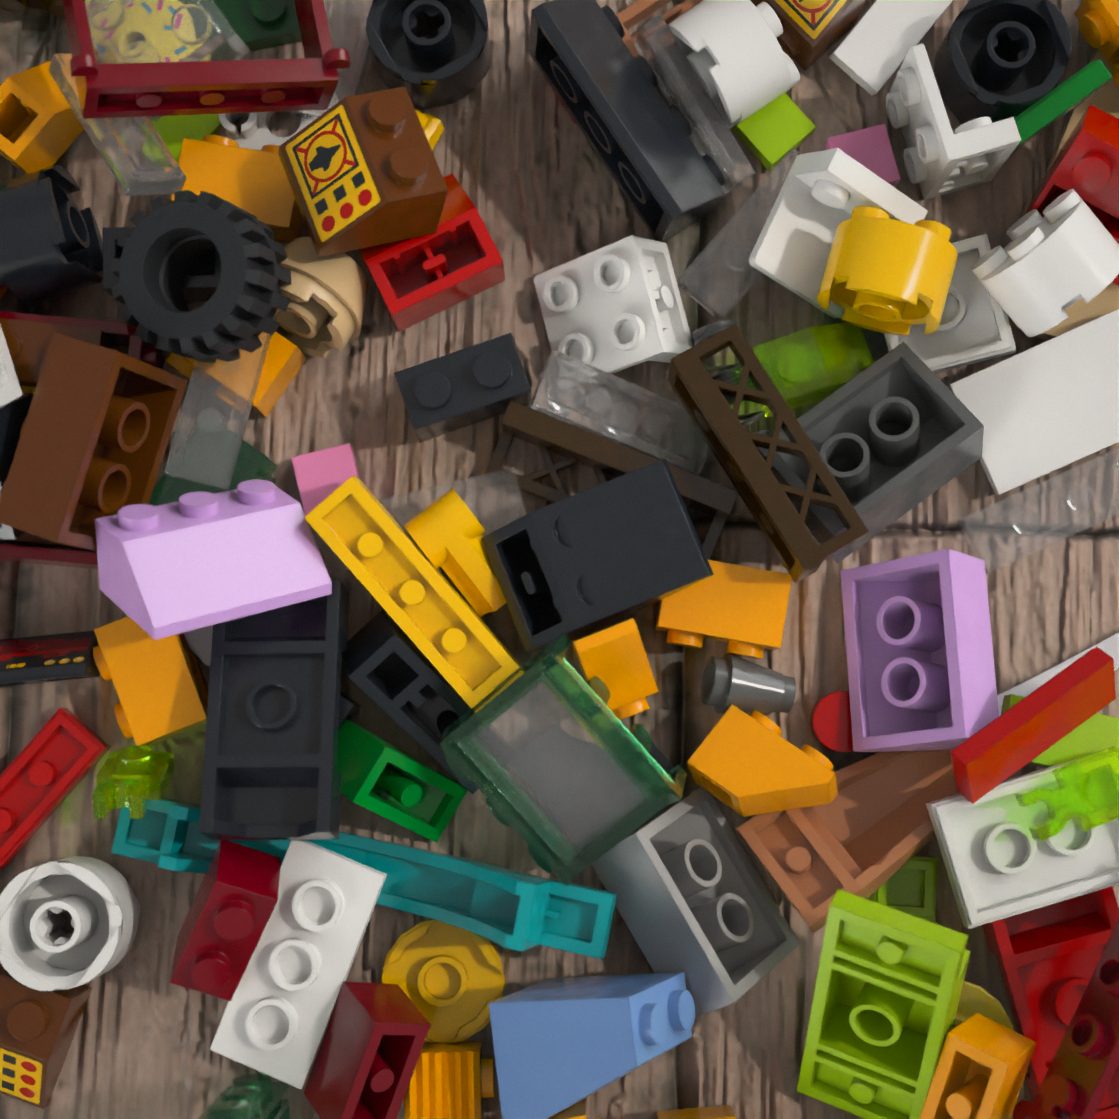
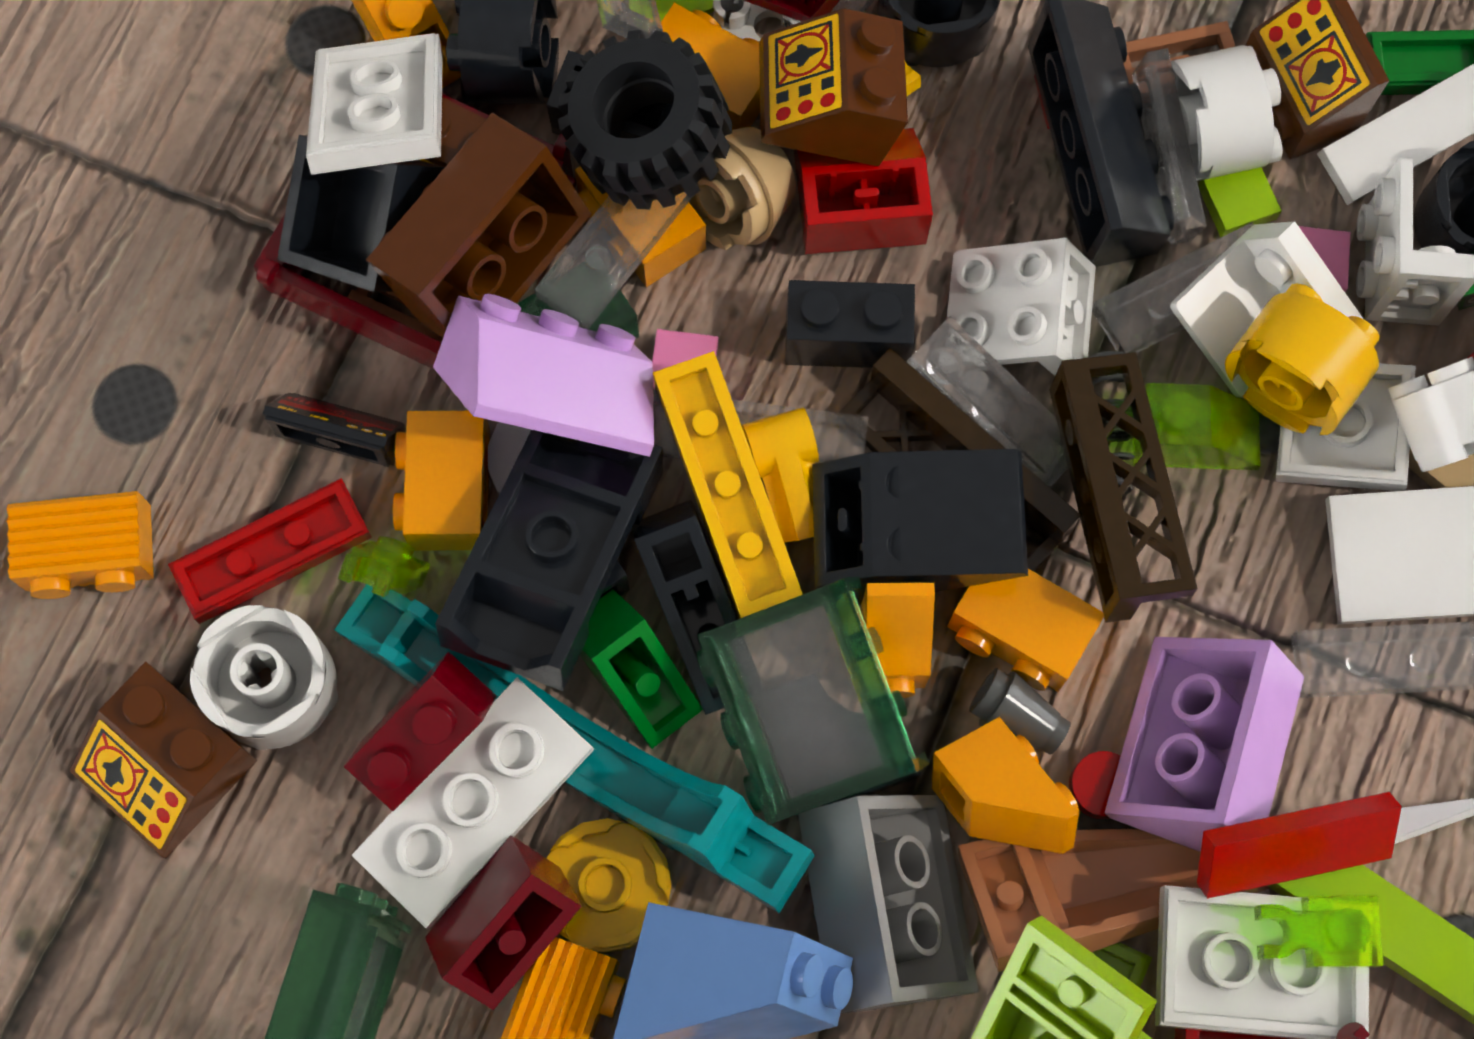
camera: 20 degrees right, 10 degrees down
(887, 441) = (1250, 527): dark grey slope -> none

